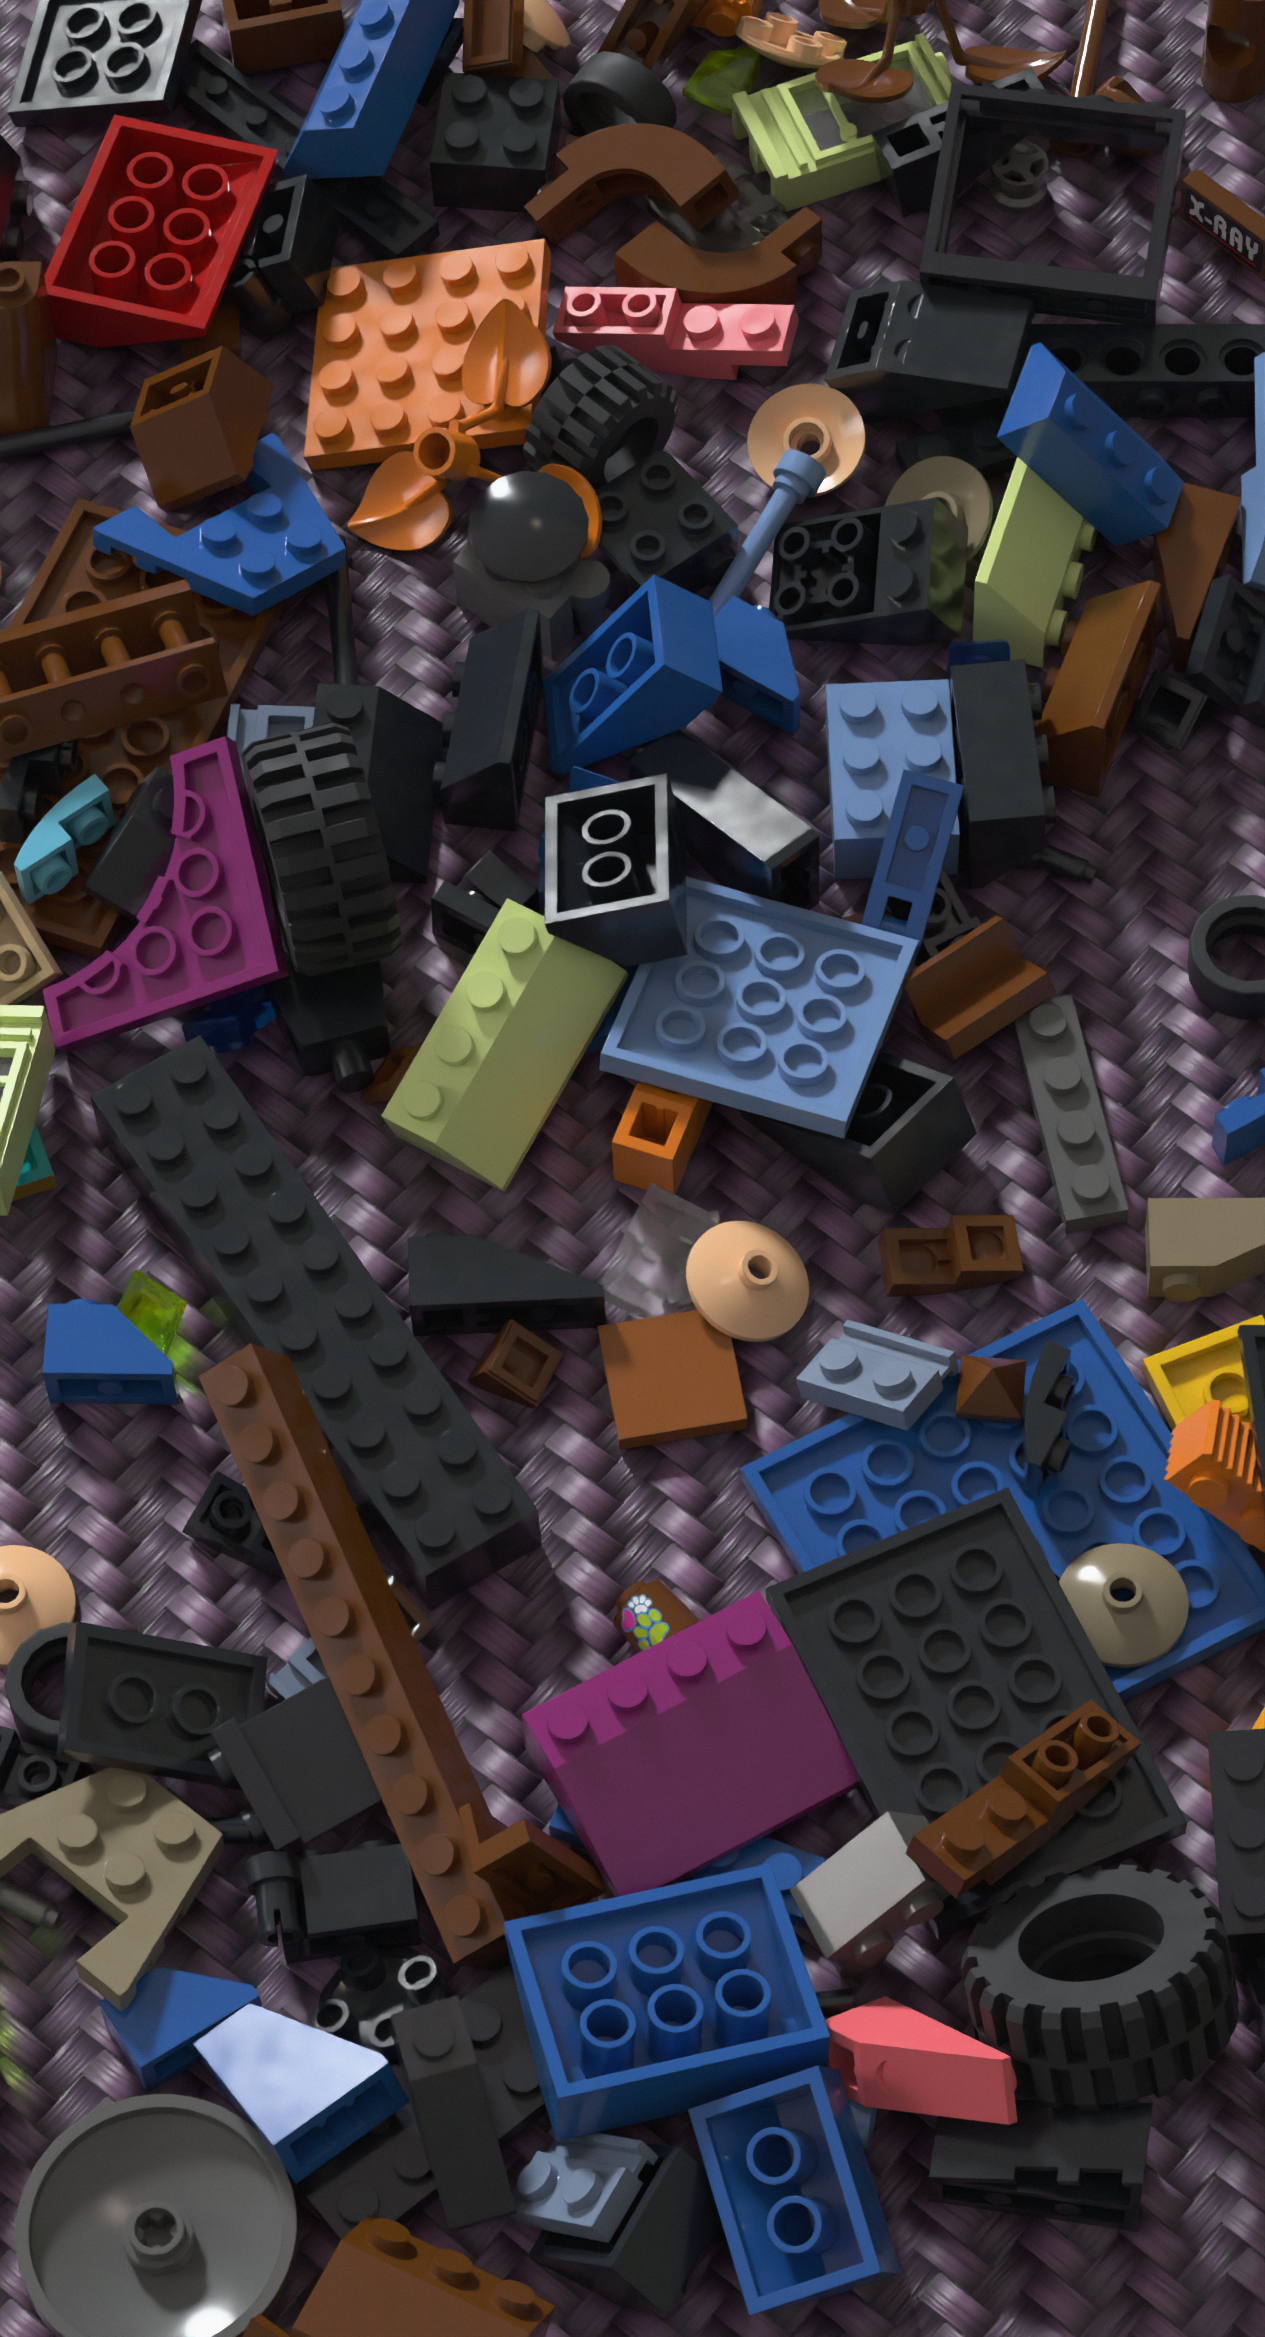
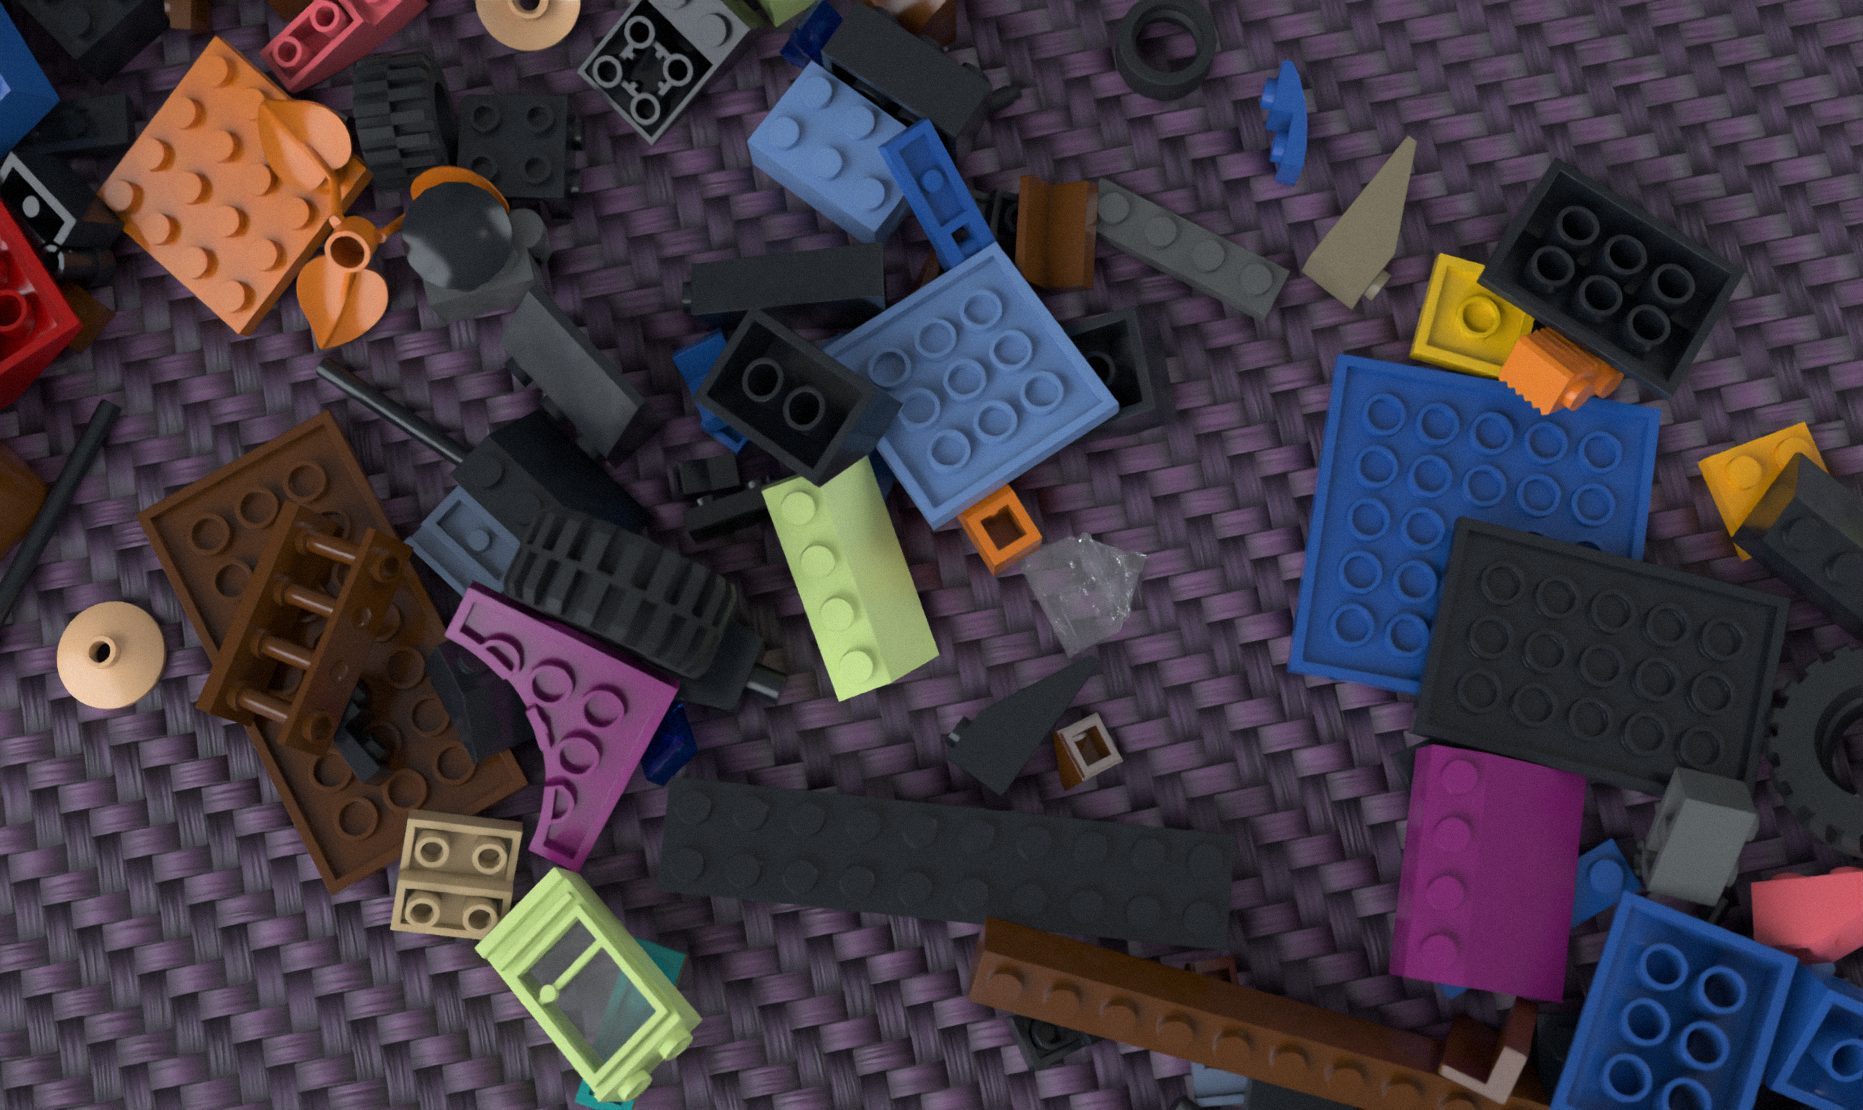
camera: 50 degrees left, 20 degrees up
(48, 854) = (429, 767): medium azure slope -> none
(103, 1358) = (855, 1030): blue slope -> none
(152, 1309) = (847, 968): clear neon green slope -> none
(199, 426) = (157, 388): reddish brown slope -> none
(248, 553) = (292, 430): blue wing -> none
(389, 1075) = (799, 657): reddish brown slope -> none
(634, 677) = (631, 261): blue slope -> none
(650, 1614) = (1365, 813): reddish brown brick -> none
(671, 1379) = (1175, 656): dark orange tile -> none
(736, 1299) = (1138, 568): light nougat dish -> none
(757, 664) = (674, 172): blue slope -> none
(796, 479) = (559, 29): medium blue piece -> none
(877, 1375) = (1293, 527): sand blue plate -> none
(961, 1257) = (1229, 408): reddish brown slope -> none
(991, 1389) = (1363, 464): reddish brown slope -> none
(1026, 1802) = (1720, 699): reddish brown slope -> none
(1045, 1424) = (1438, 465): black slope -> none
(1133, 1630) = (1557, 507): dark tan dish -> none

